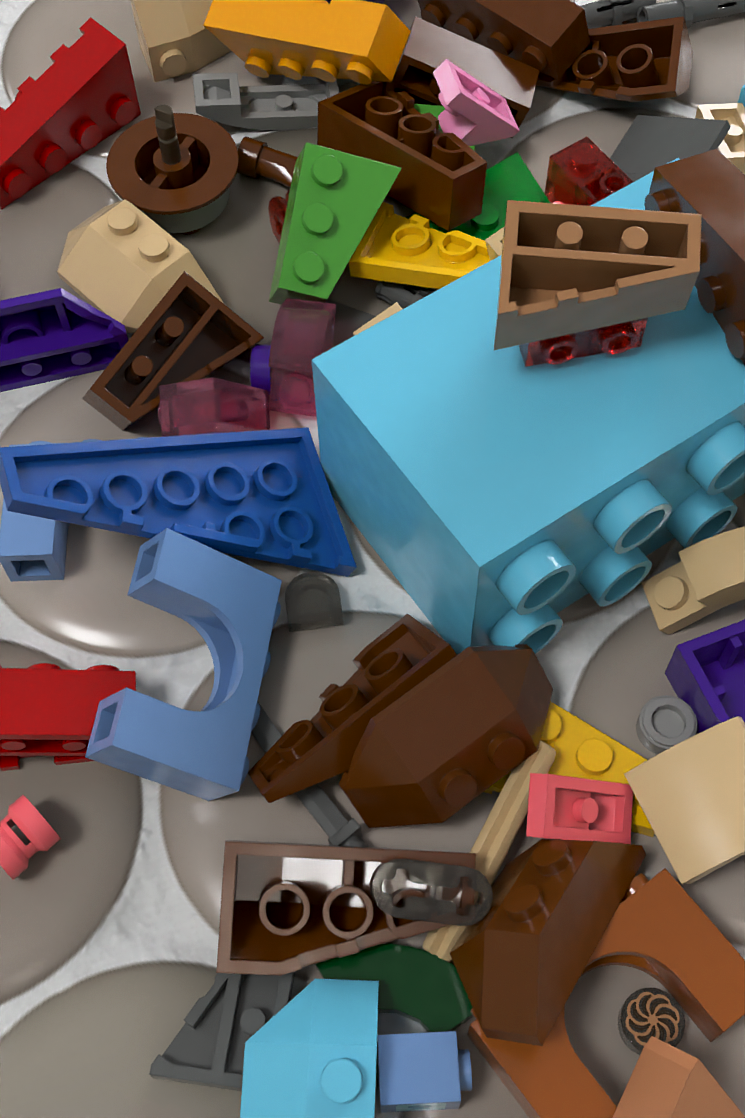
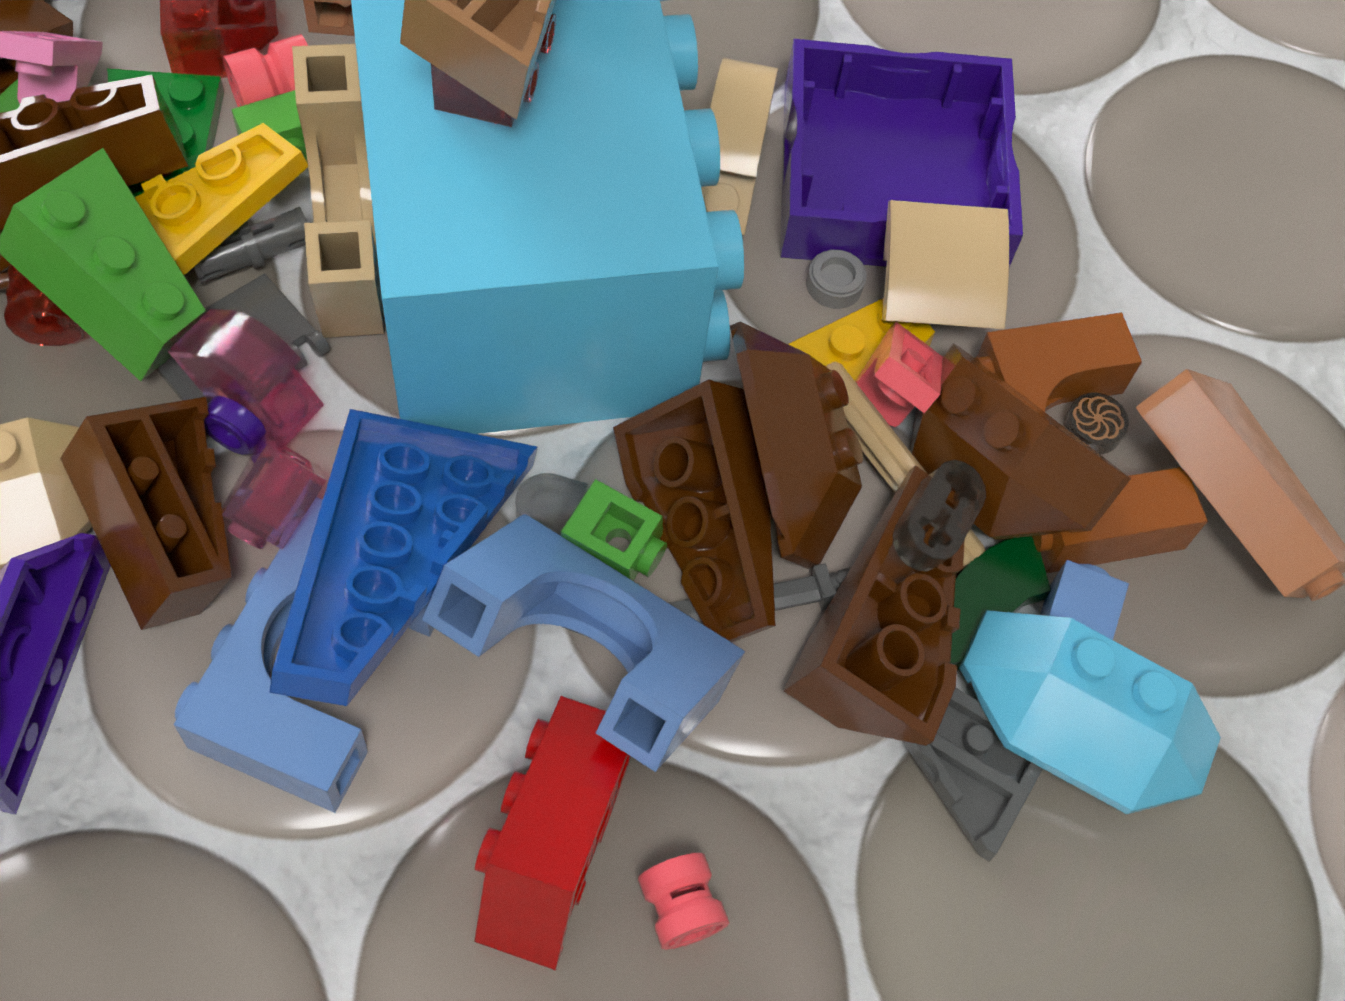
camera: 75 degrees left, 0 degrees up
(298, 637) = (609, 515): none -> bright green brick

